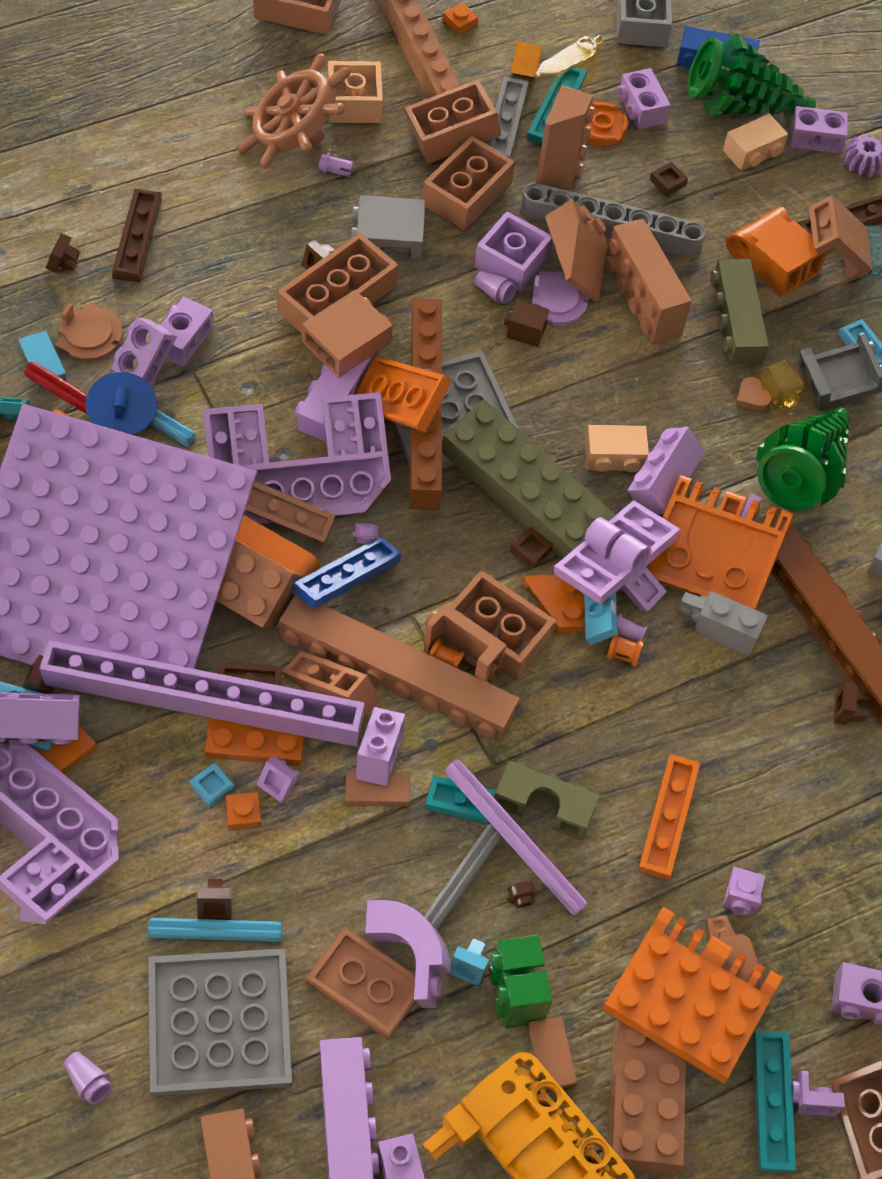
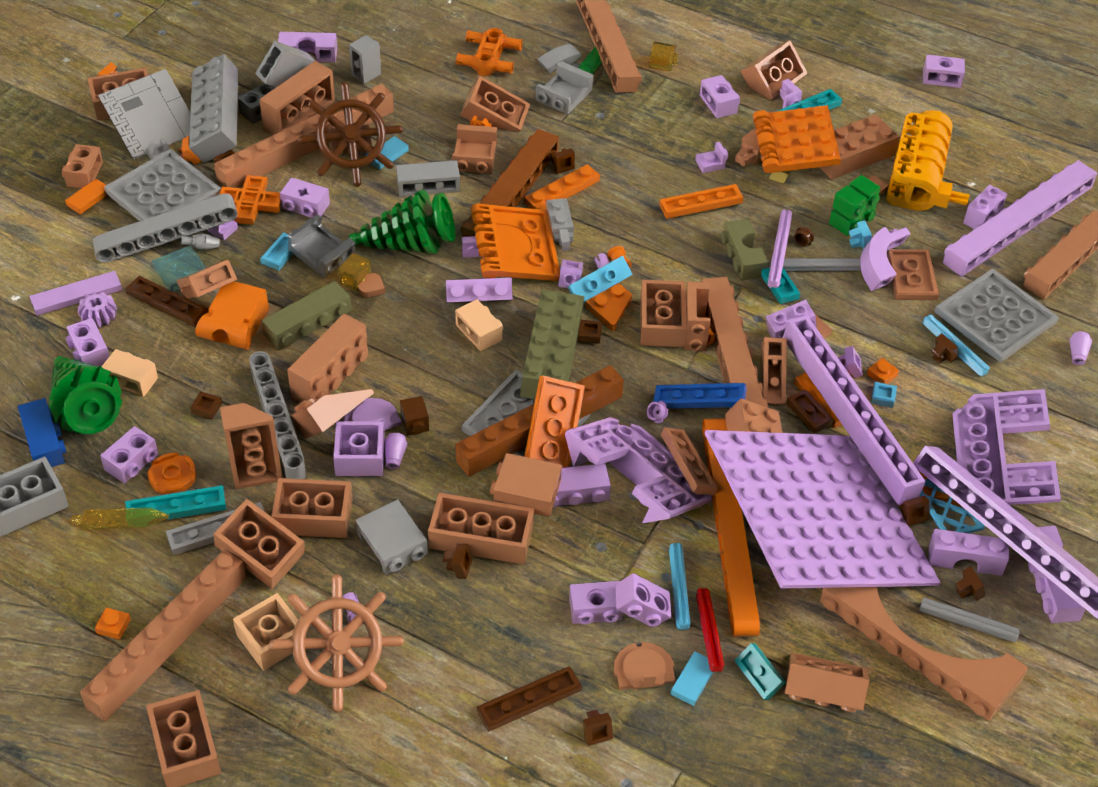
camera: 120 degrees left, 10 degrees down
(121, 402) = (693, 591): blue shield -> none
(526, 59) = (132, 553): light orange slope -> none
(616, 551) = (568, 274): lavender plate -> none
(799, 679) = (563, 187): none -> orange plate

